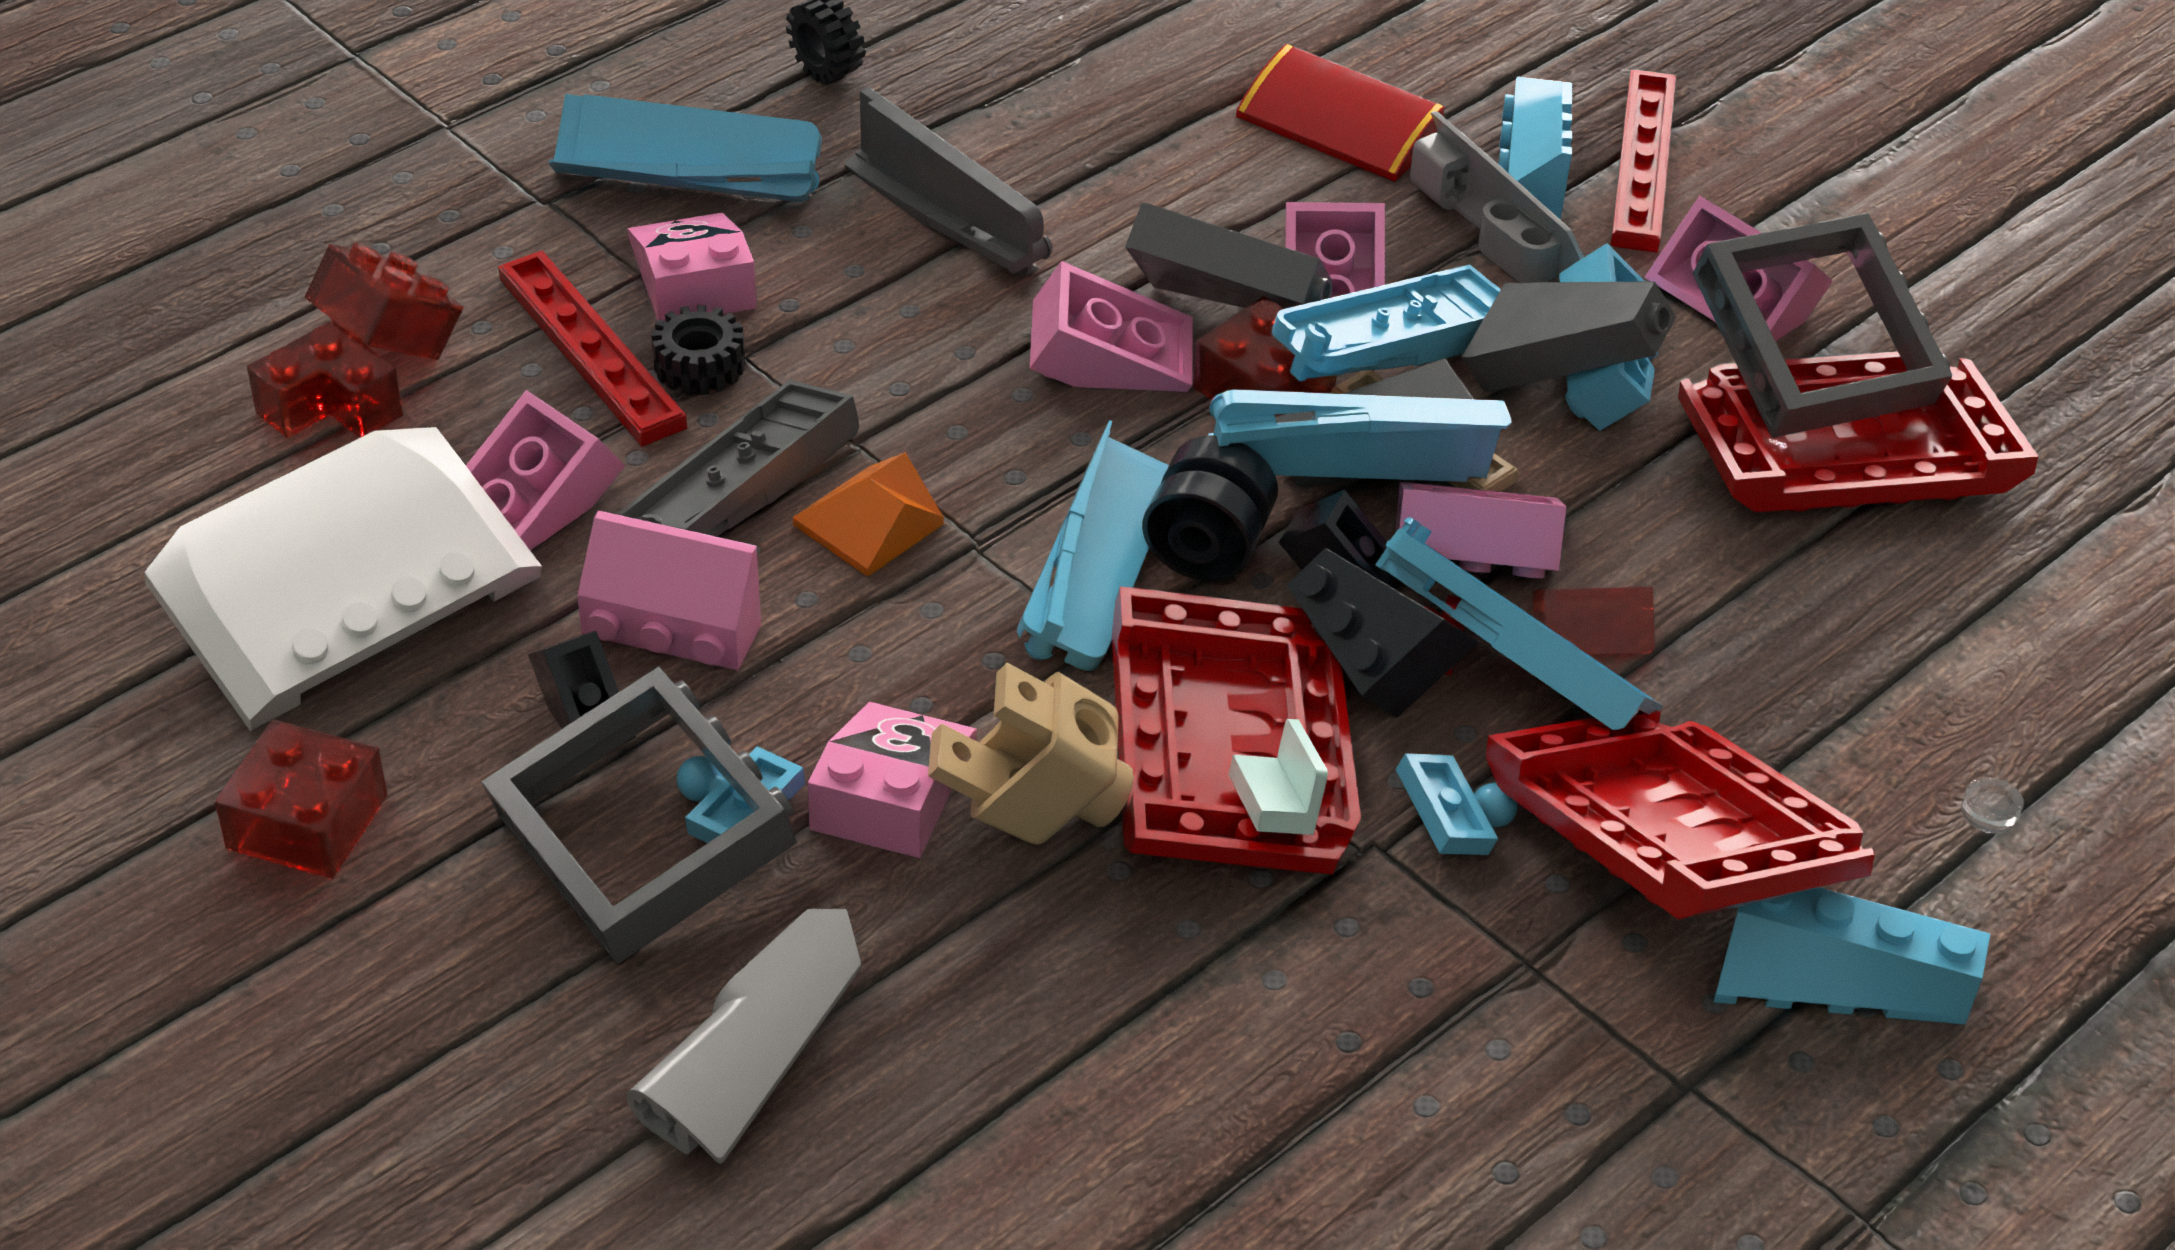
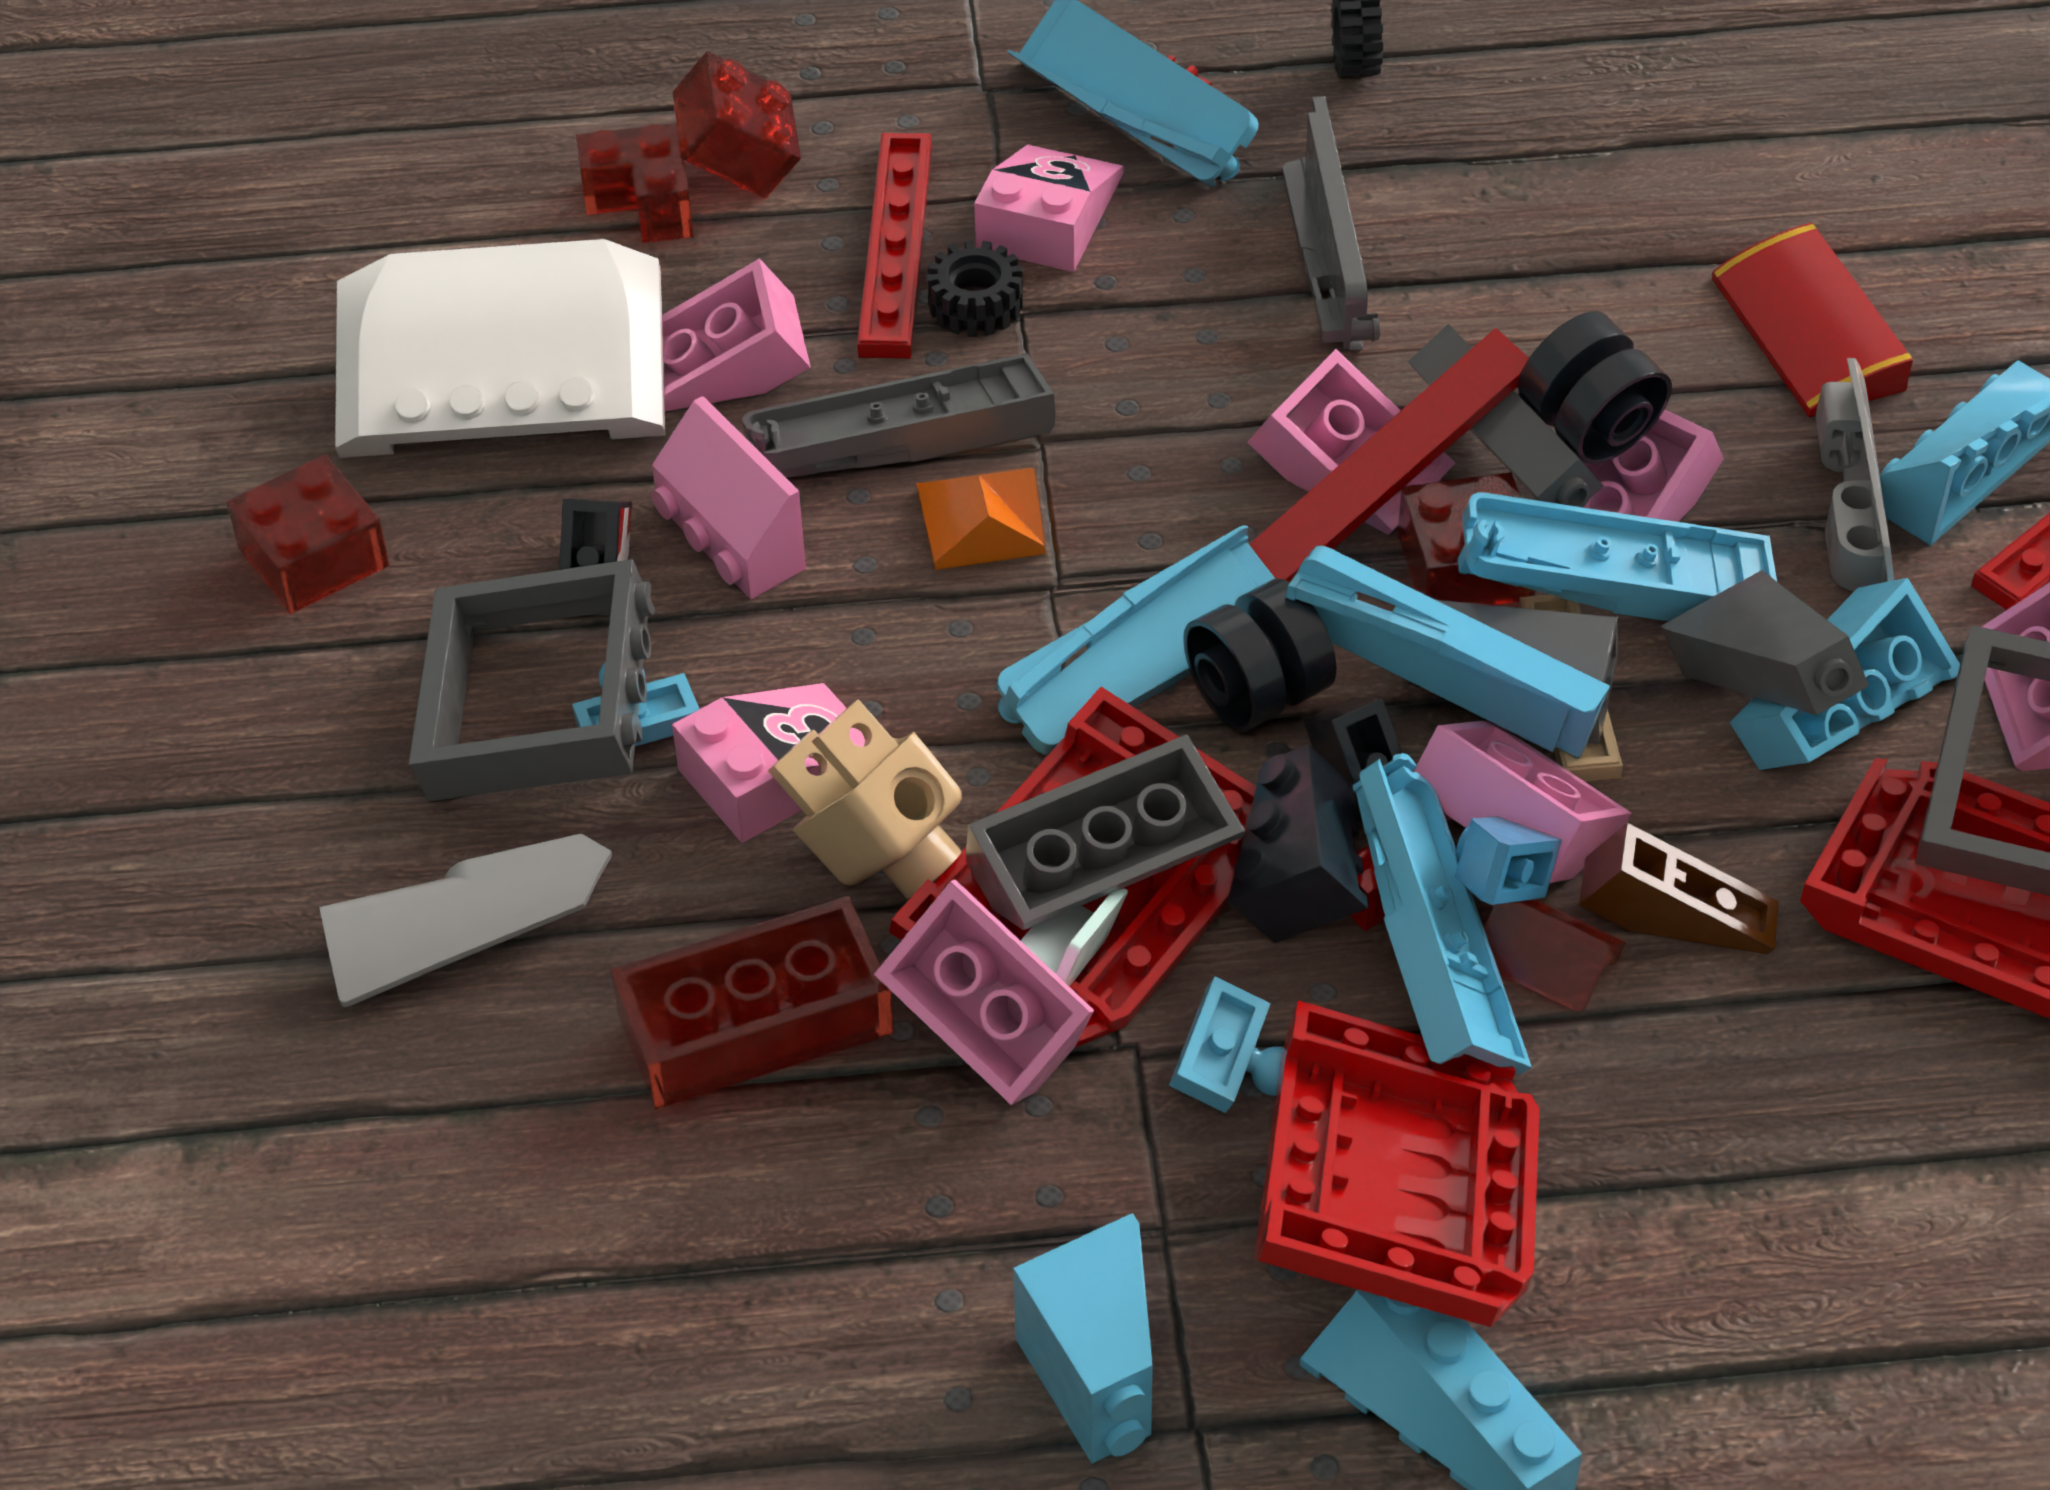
camera: 40 degrees right, 5 degrees up
(1076, 964) = (752, 1002): none -> clear red brick
(1174, 320) = (1393, 455): none -> red tile
(1243, 692) = (1099, 833): none -> dark grey slope
(1278, 842) = (985, 994): none -> bright pink slope
(1306, 206) = (1594, 387): none -> black wheel
(1528, 563) = (1505, 860): none -> dark azure slope
(1596, 1057) = (1089, 1335): none -> medium azure slope
(1640, 537) = (1674, 895): none -> reddish brown slope
(1992, 805) = (1767, 1344): clear tile -> none

